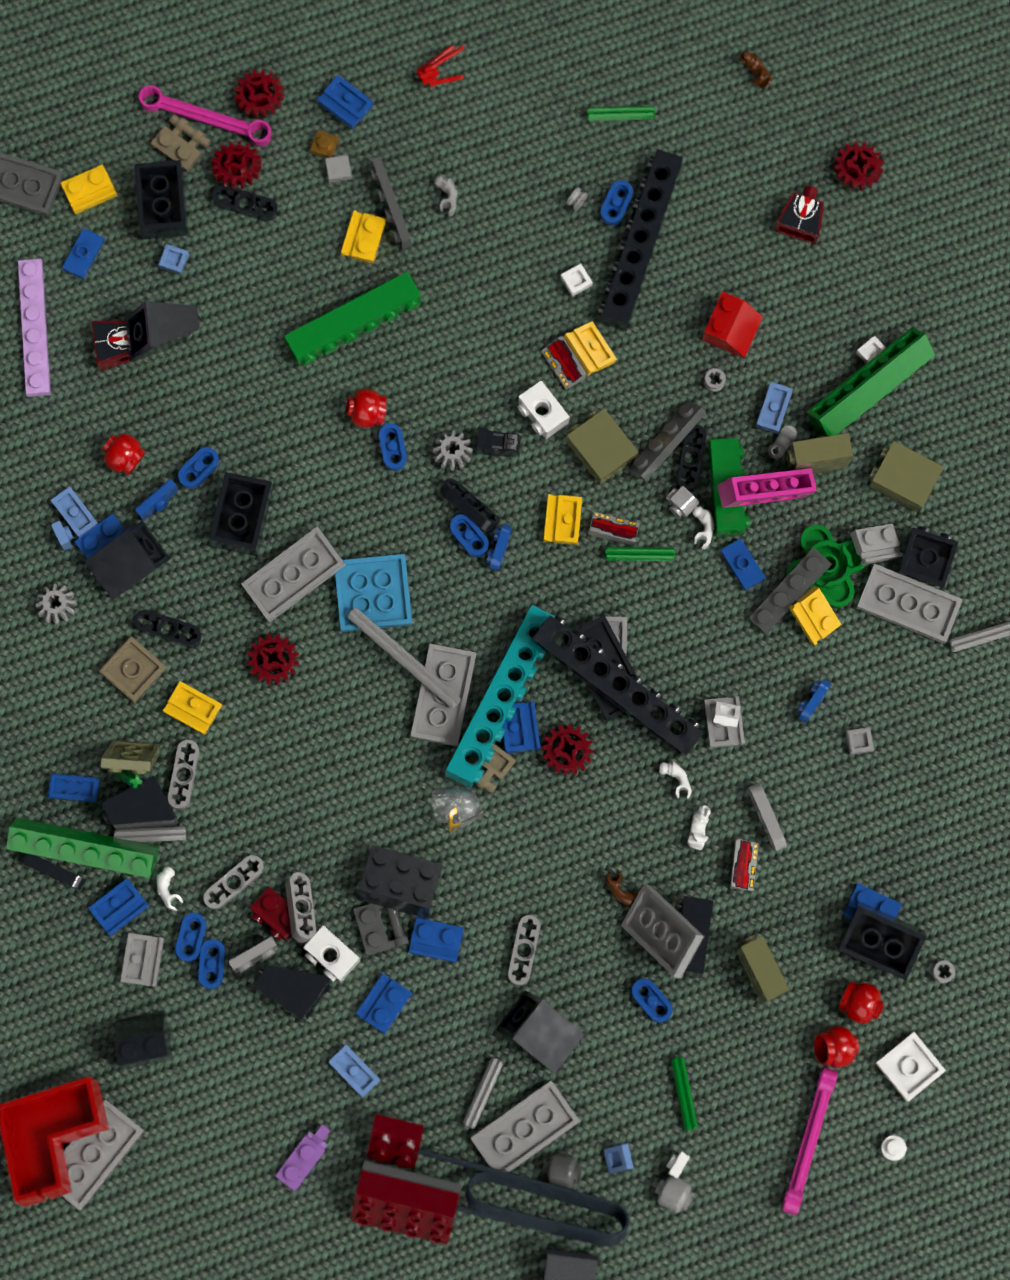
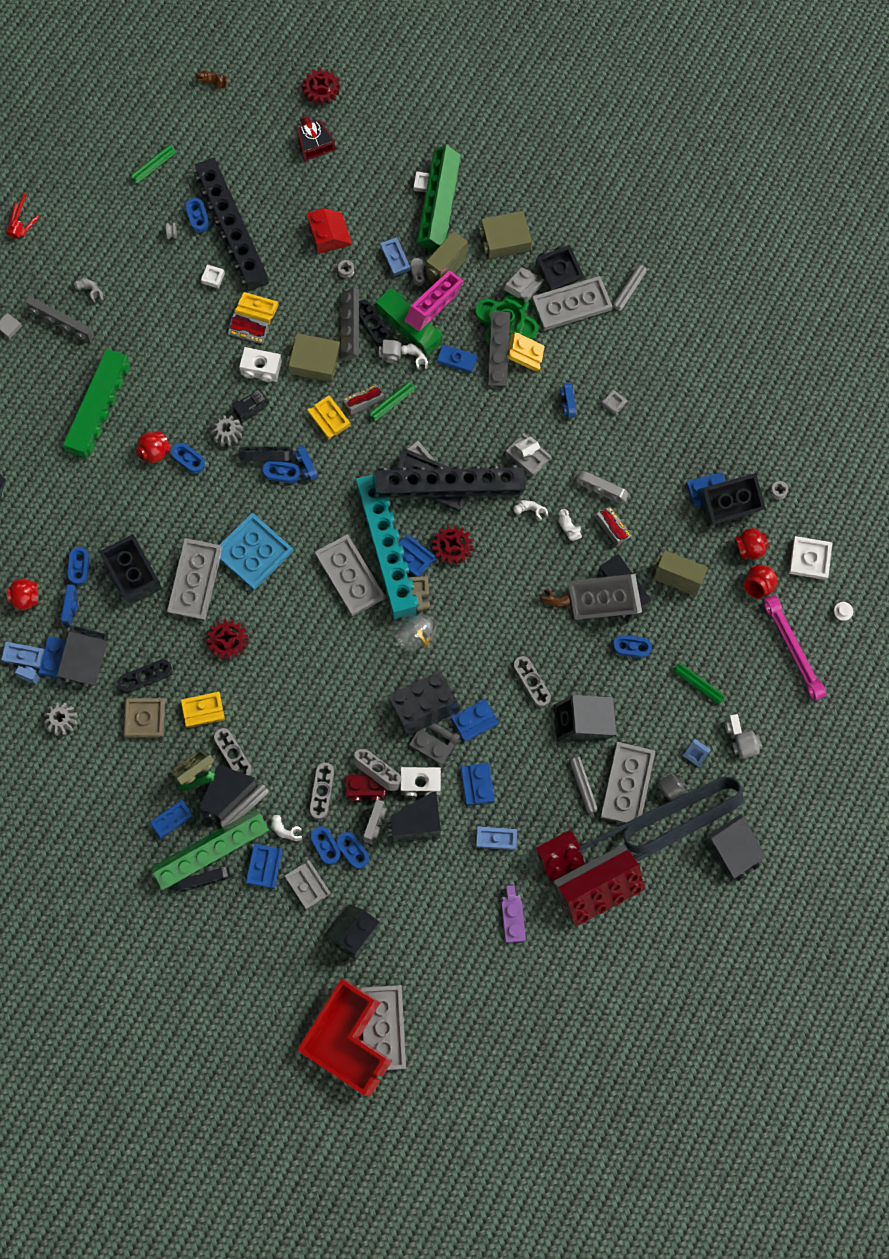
camera: 40 degrees left, 5 degrees down
(363, 237) = (60, 353): yellow plate -> none
(404, 658) = (308, 571): light grey axle -> none

